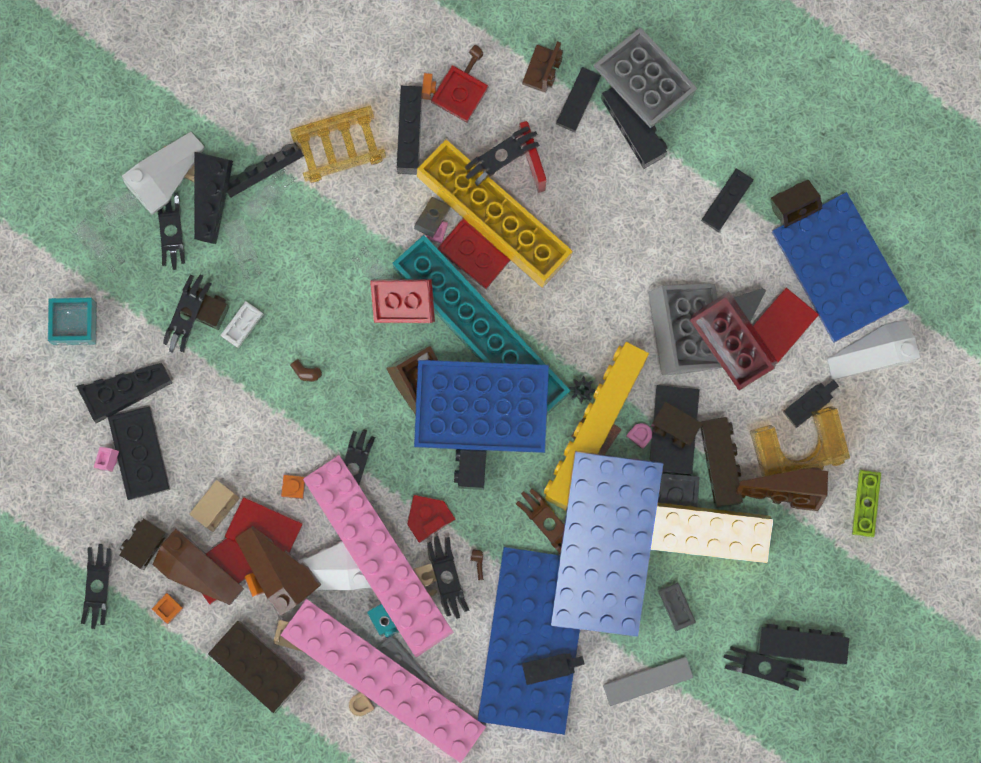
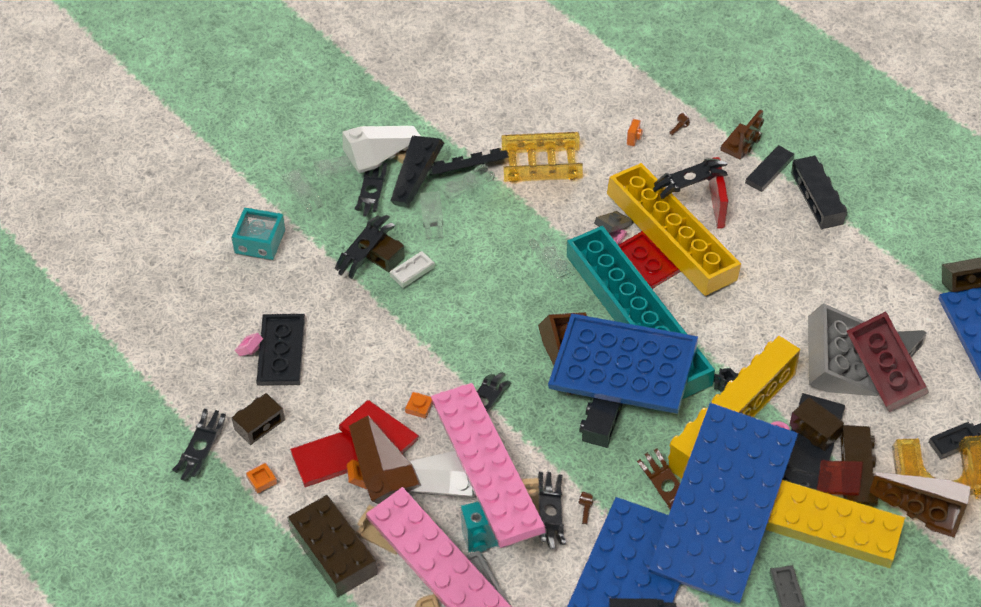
camera: 15 degrees right, 30 degrees down
(114, 394) = (273, 299): black wing -> none
(190, 566) = (298, 445): reddish brown wedge -> none
(214, 506) = (338, 402): tan hinge -> none
(306, 374) = (460, 318): reddish brown arm -> none
(402, 300) = (568, 273): tile -> none
(409, 130) = (609, 157): black brick -> none
(428, 517) = (545, 456): red plate -> none
(459, 94) = (661, 143): red plate -> none
(646, 78) = (839, 155): light grey slope -> none
(707, 485) = (840, 477): none -> clear red piece
(727, 200) = (898, 265): black tile -> none
(784, 323) = (943, 369): red tile -> none

